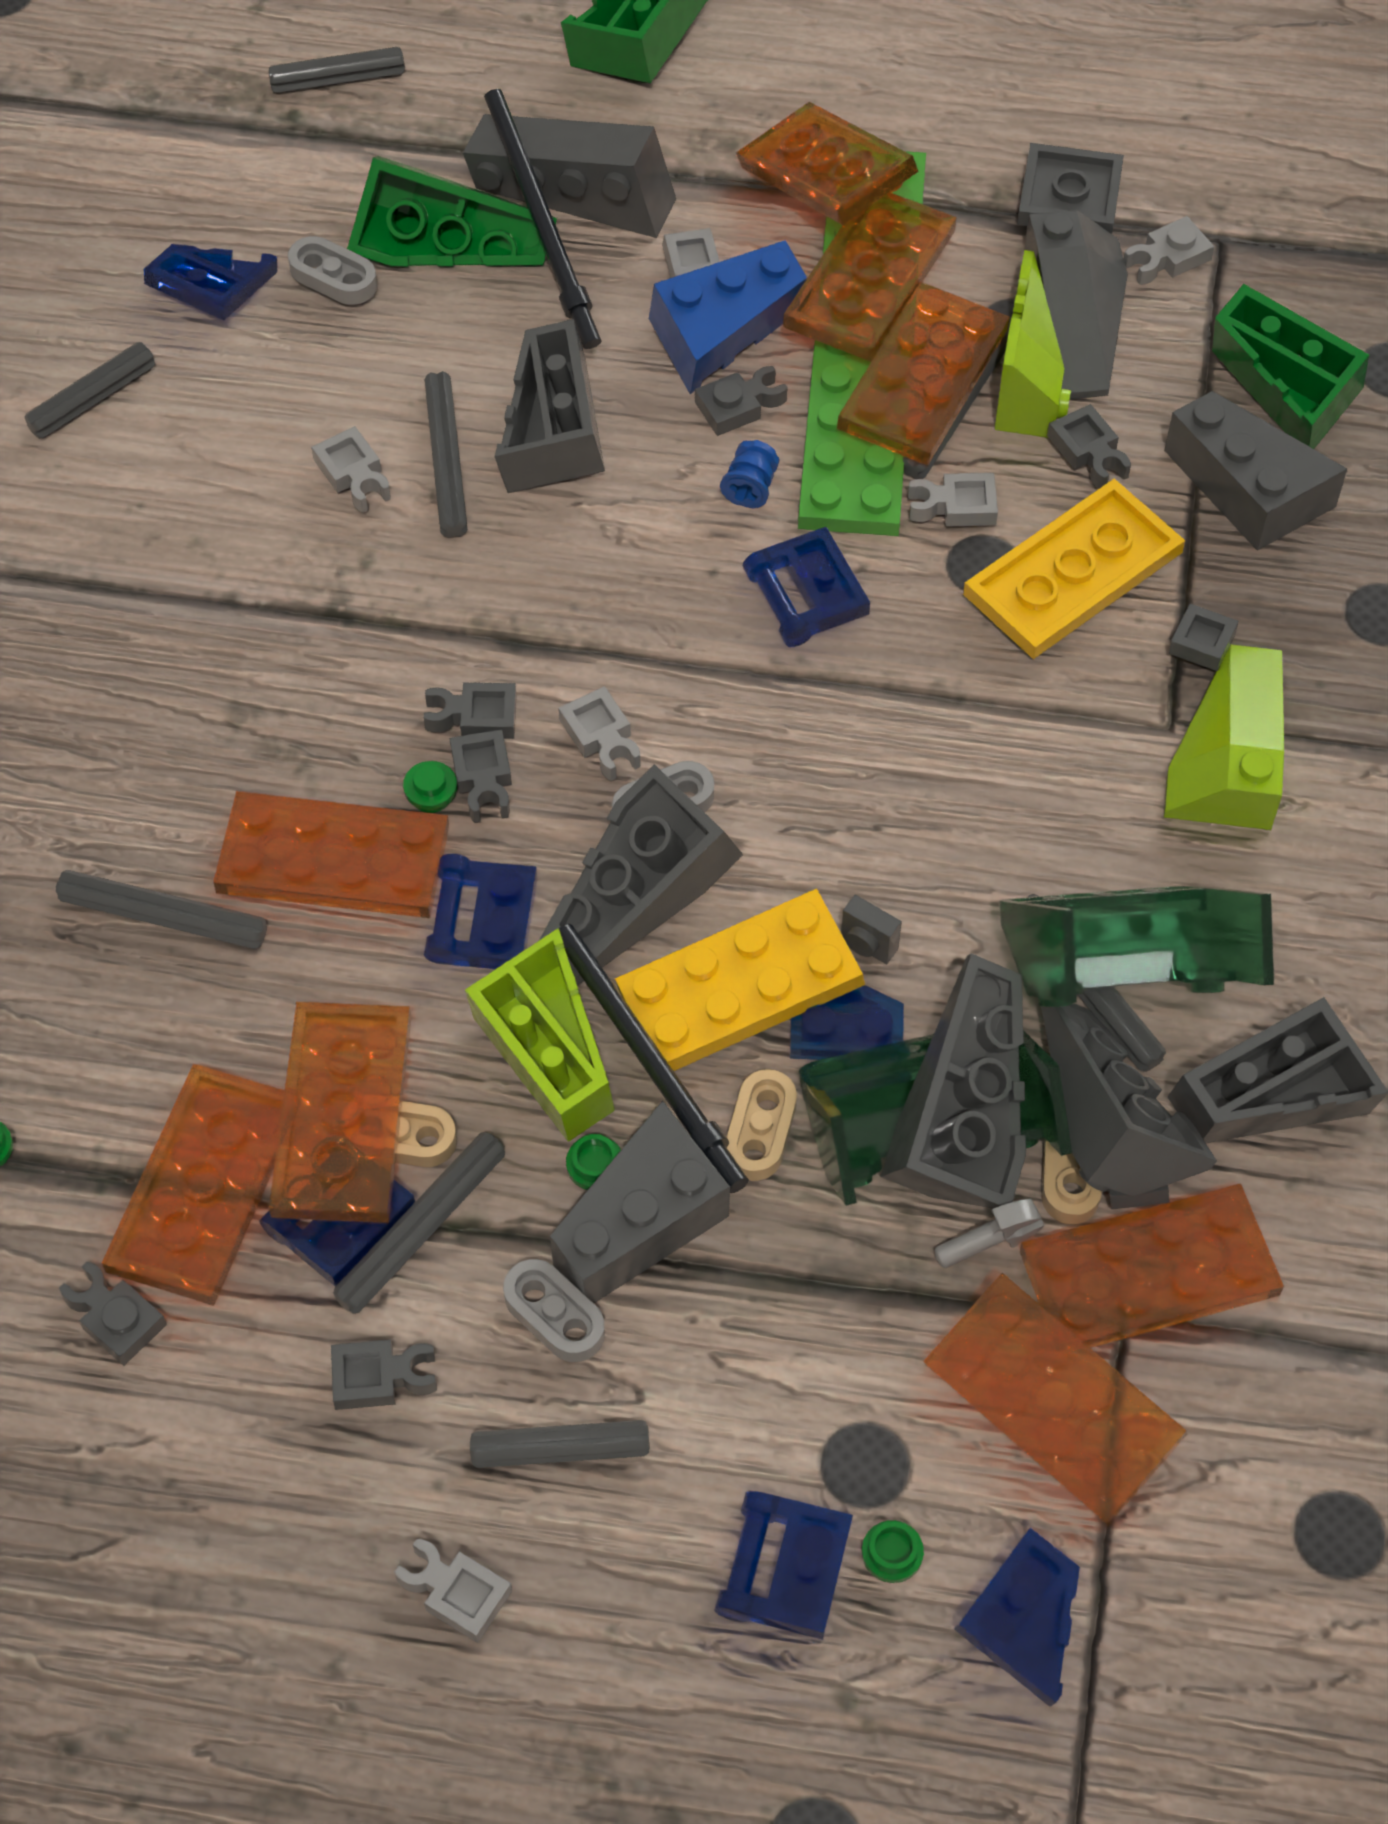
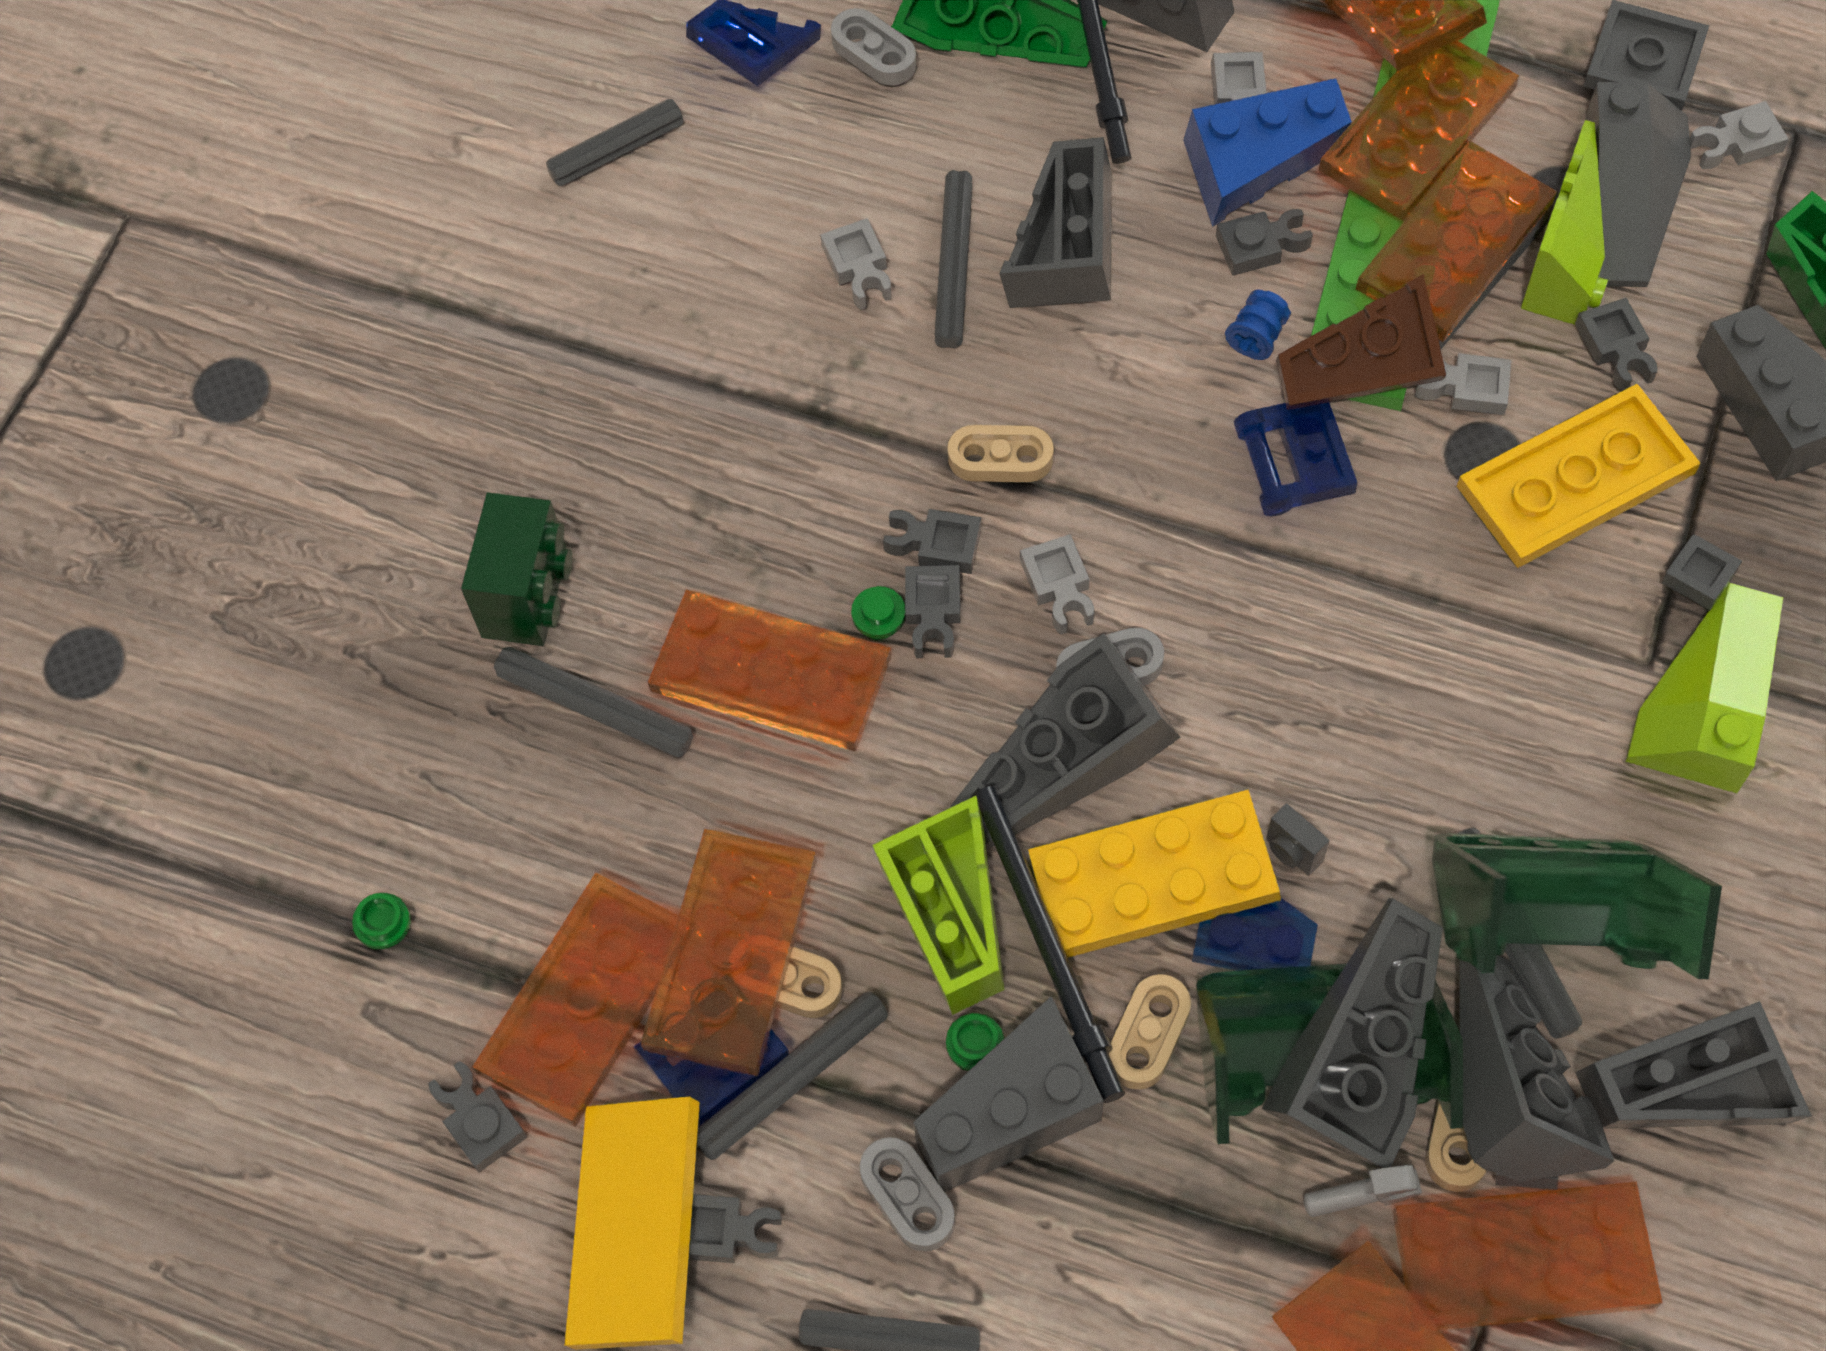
camera: 15 degrees right, 5 degrees up
(65, 793) = (516, 569): none -> dark green brick
(289, 1382) = (633, 1224): none -> yellow tile
(499, 917) = (924, 763): clear blue plate -> none
(523, 623) = (1000, 450): none -> tan plate
(861, 481) = (1371, 352): none -> reddish brown wing

